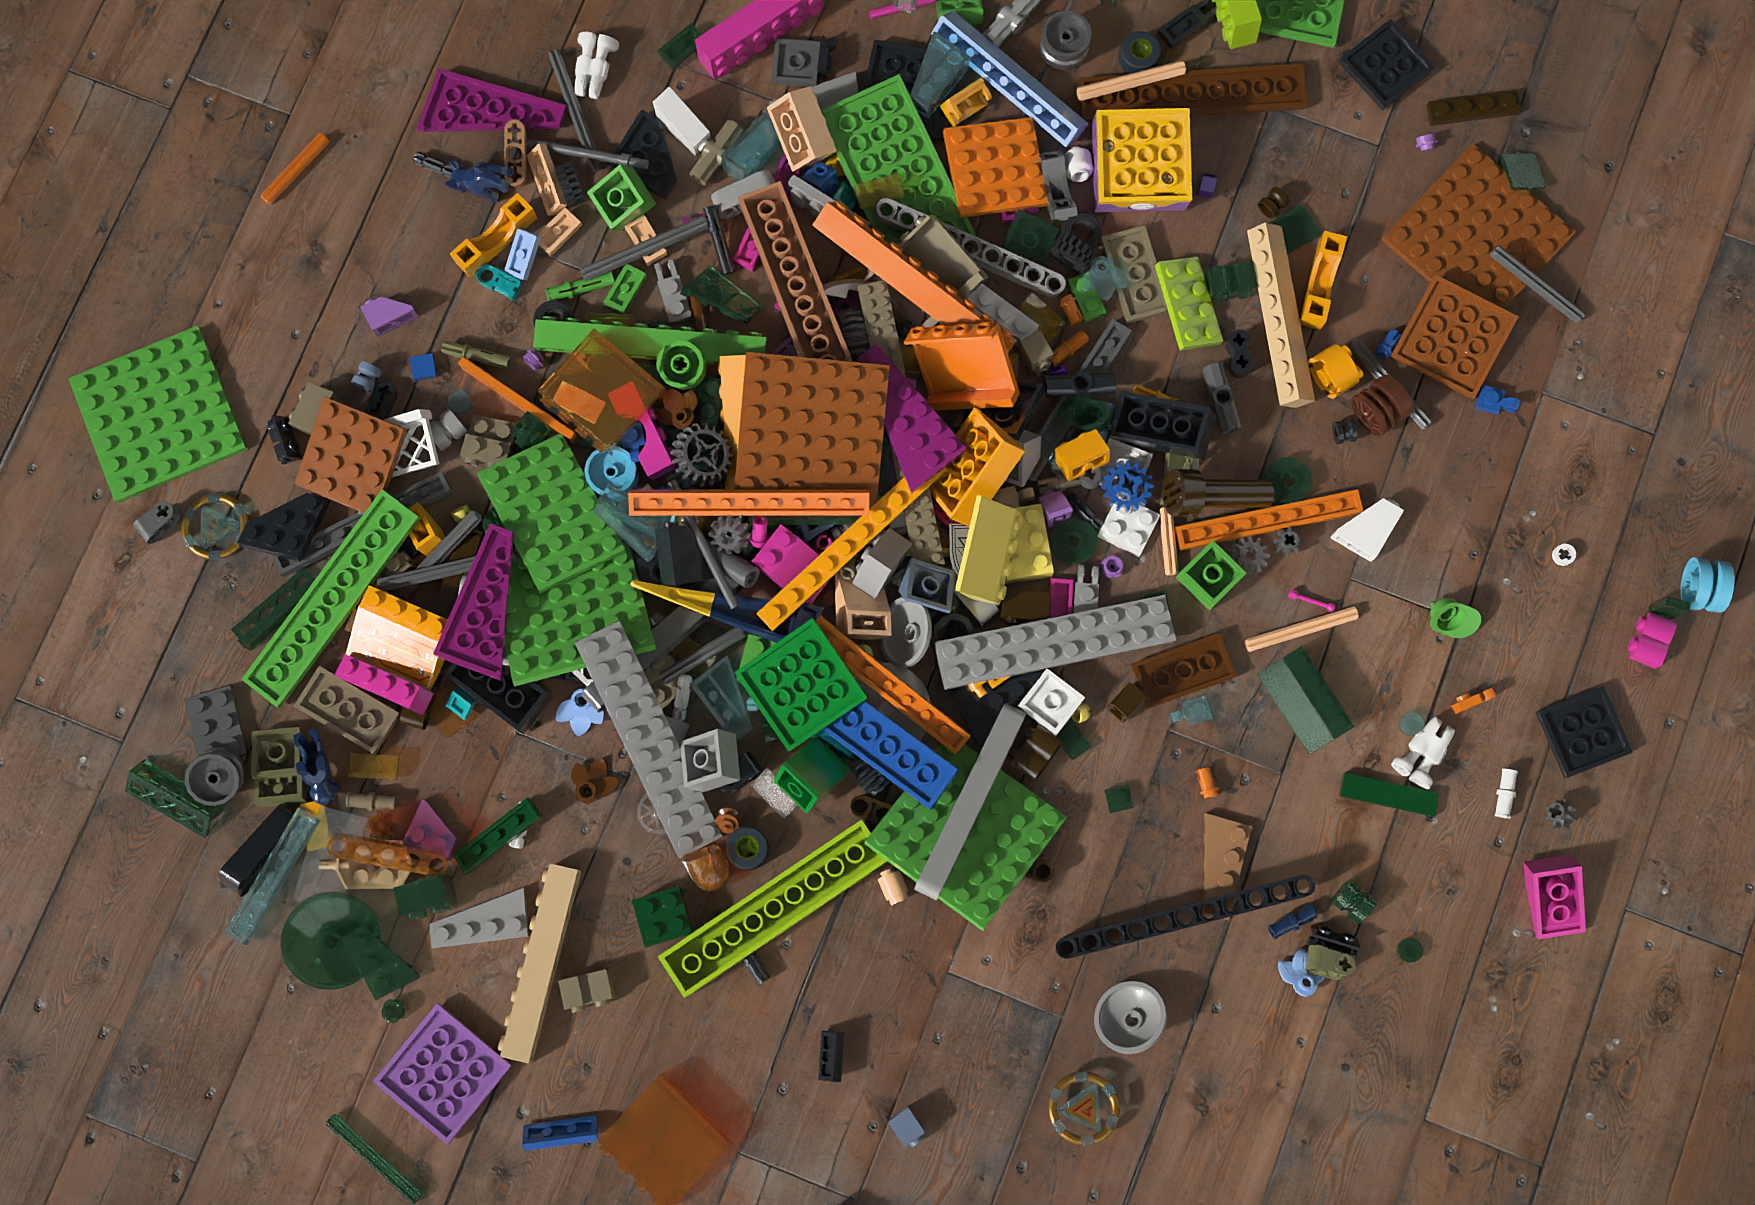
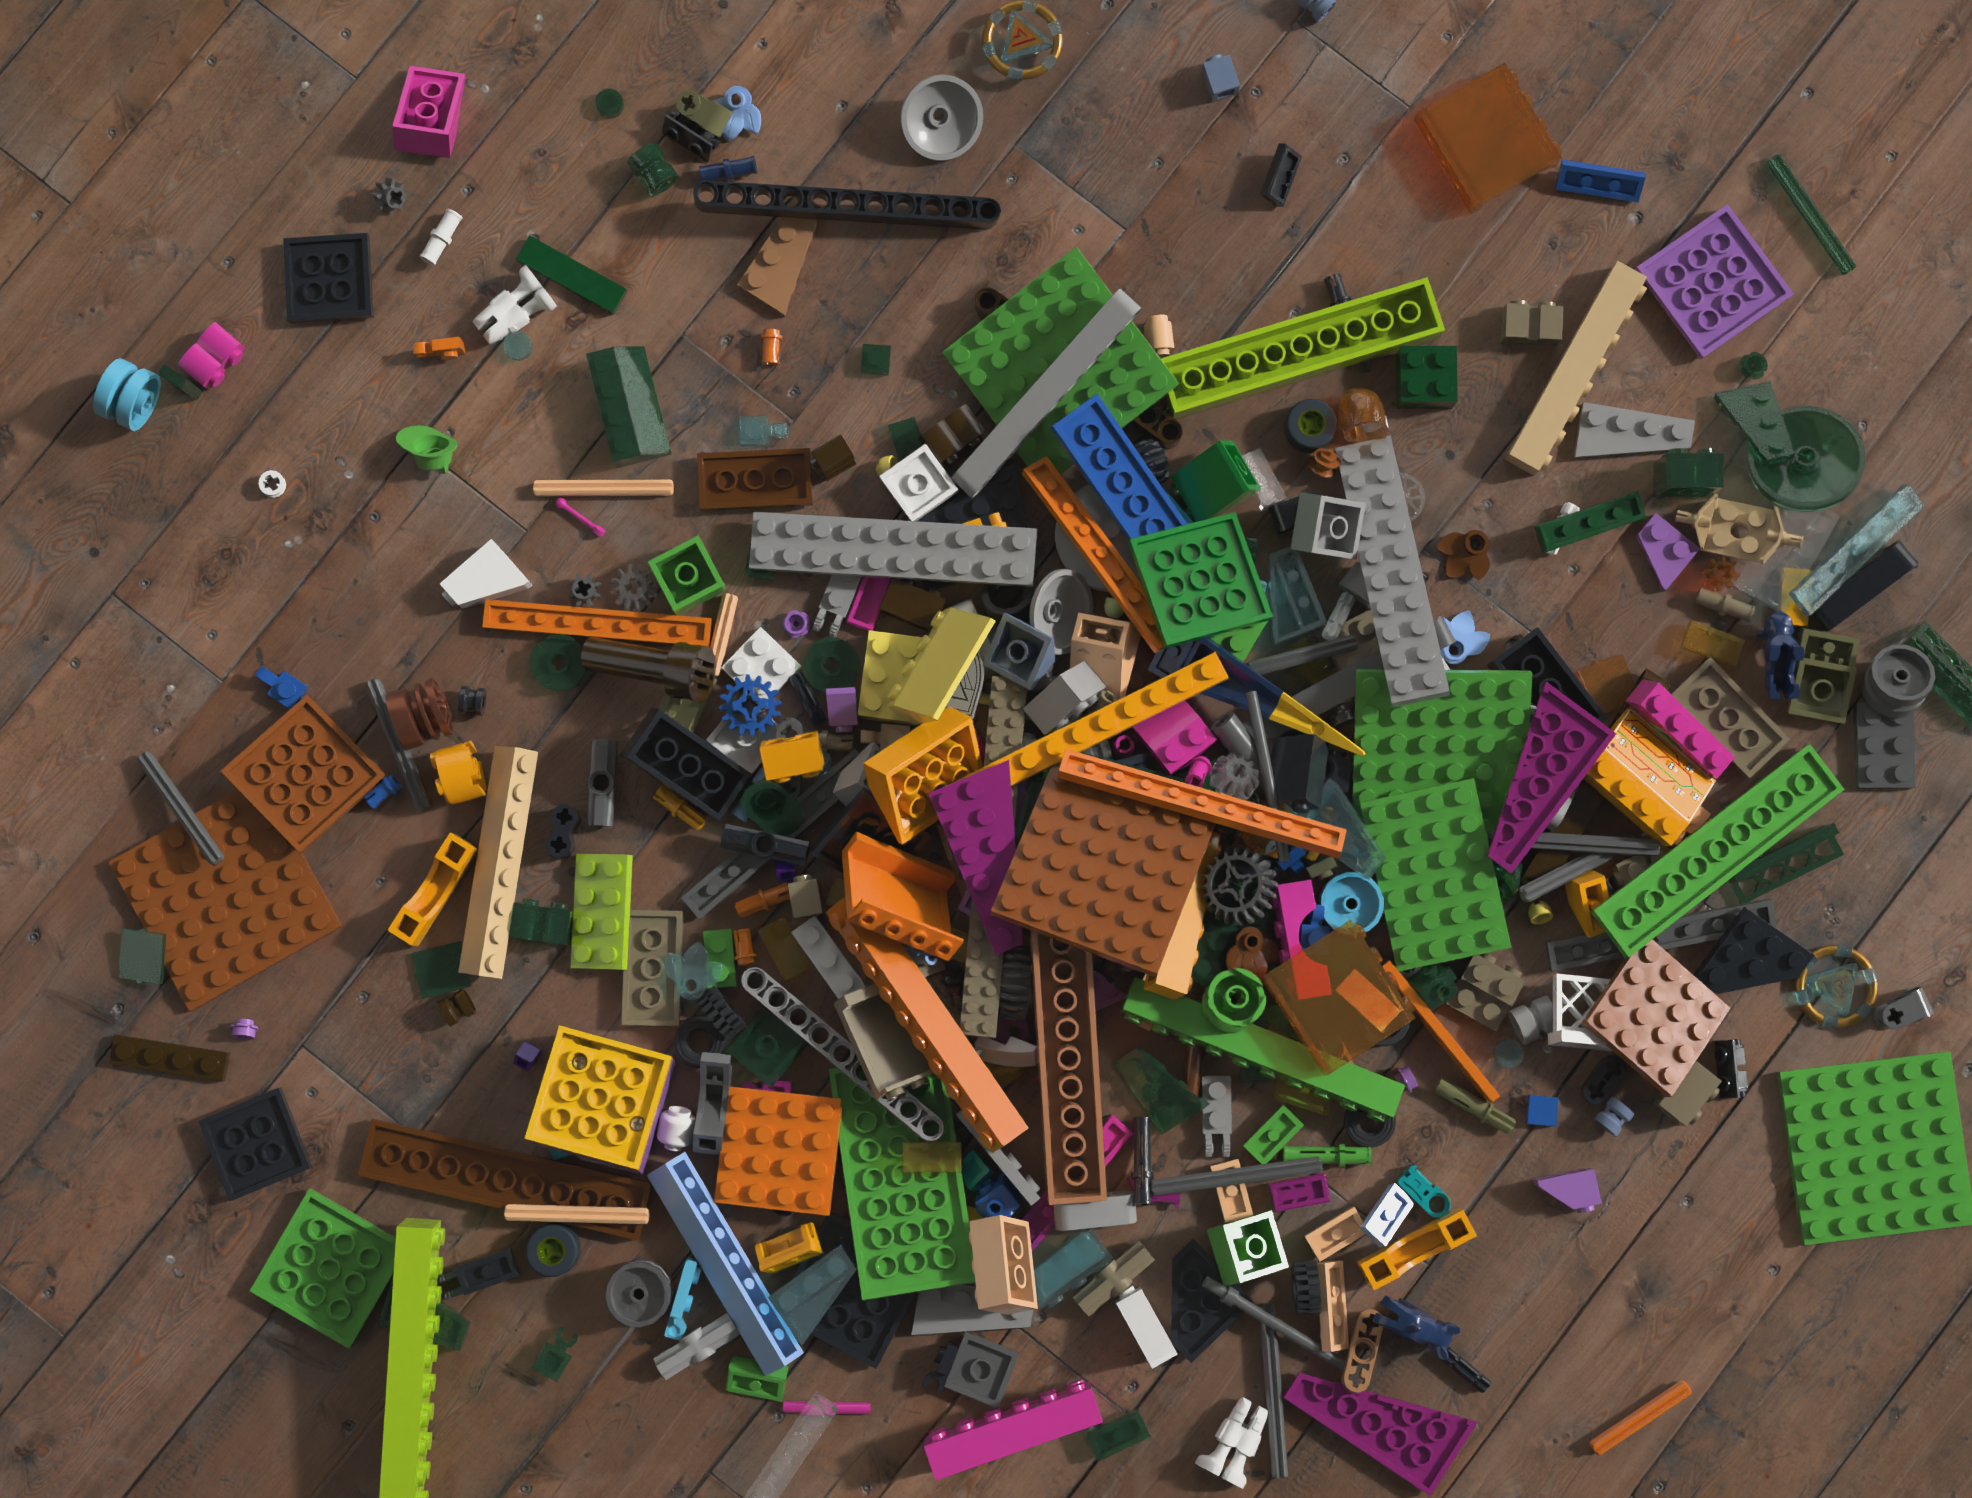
camera: 165 degrees left, 5 degrees up
(375, 858) = (1728, 541): clear orange beam -> none
(461, 703) = (1596, 684): teal plate -> none
(593, 251) = (1299, 1192): none -> magenta plate
(1030, 28) = (682, 1302): none -> medium azure hinge

